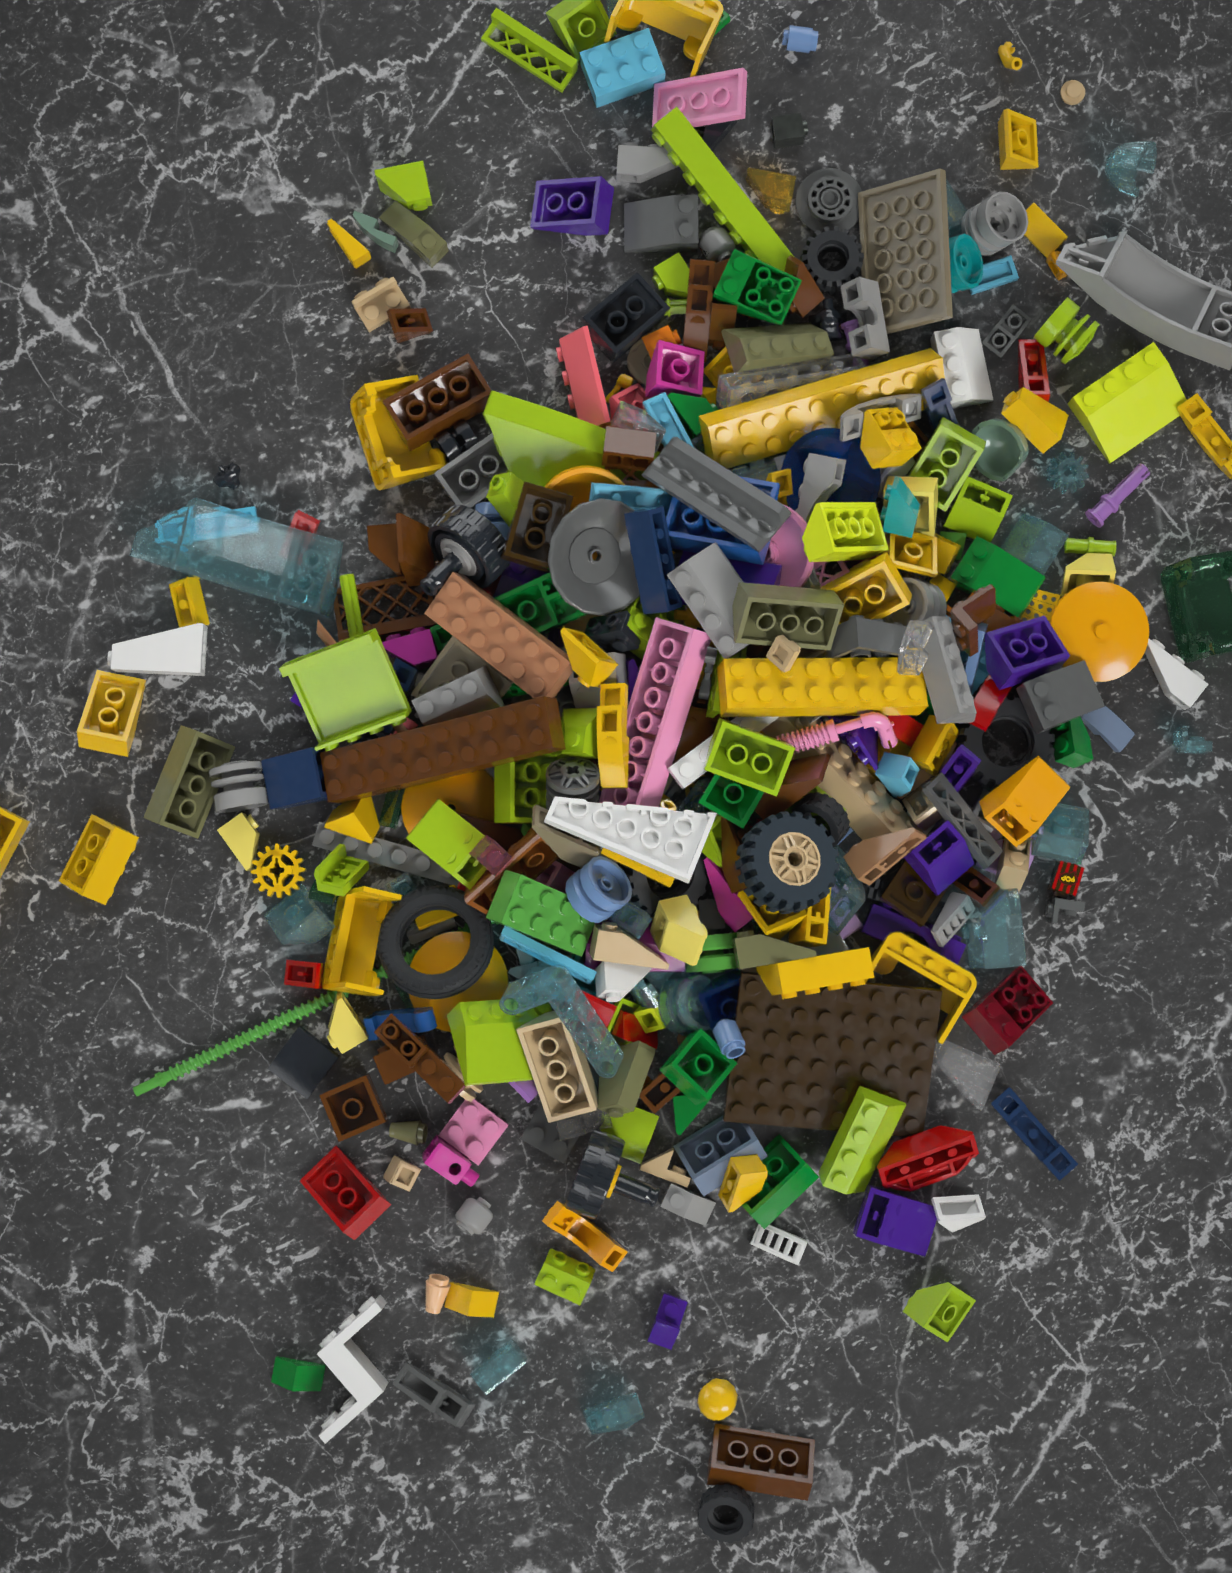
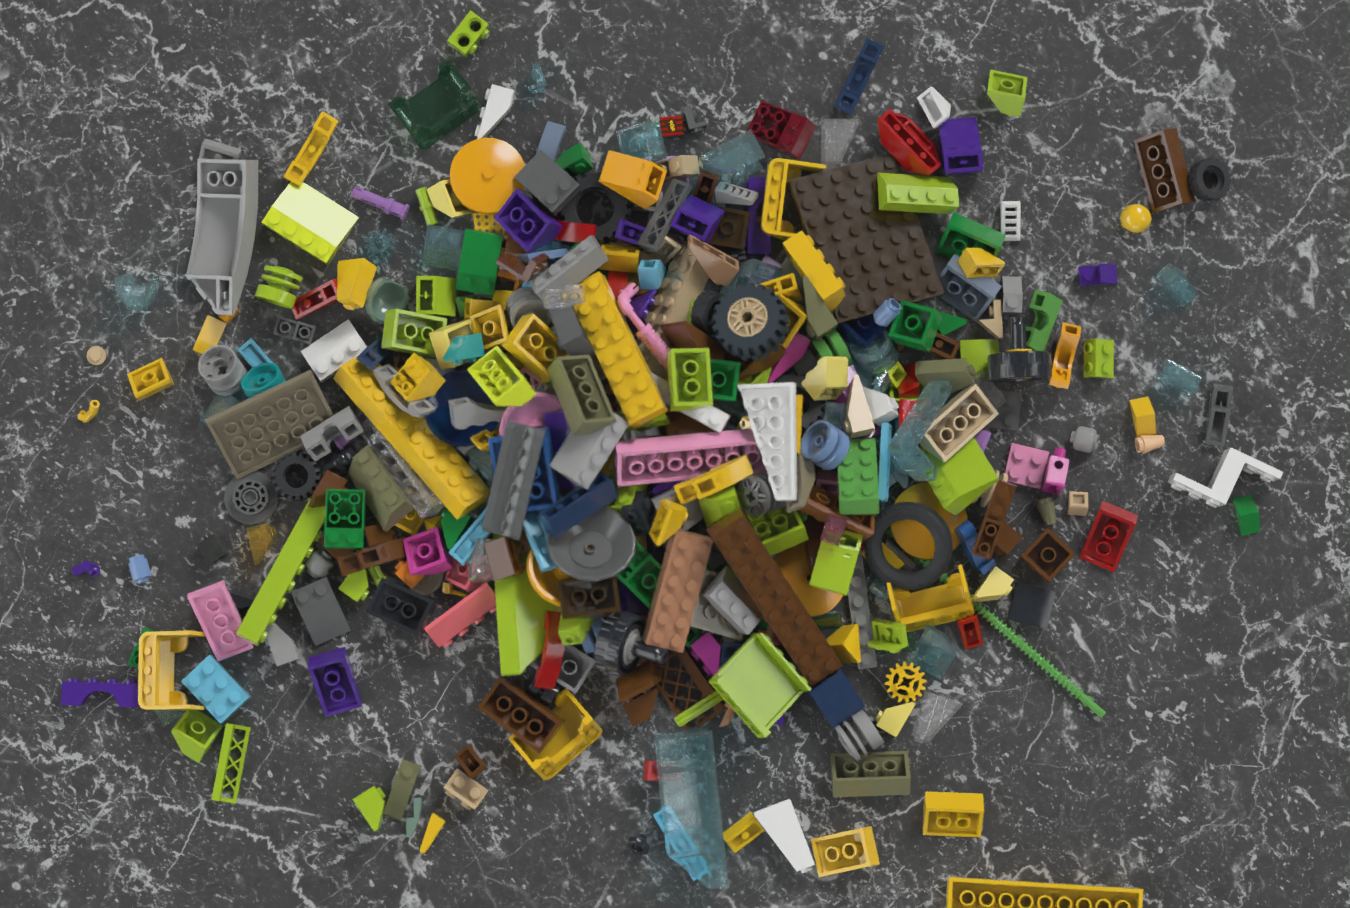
camera: 120 degrees left, 0 degrees up
(224, 886) = (932, 716): none -> clear slope
(489, 460) = (552, 653): none -> red slope
(650, 1238) = (1046, 310): none -> bright green arch
(783, 653) = (608, 384): tan tile -> none

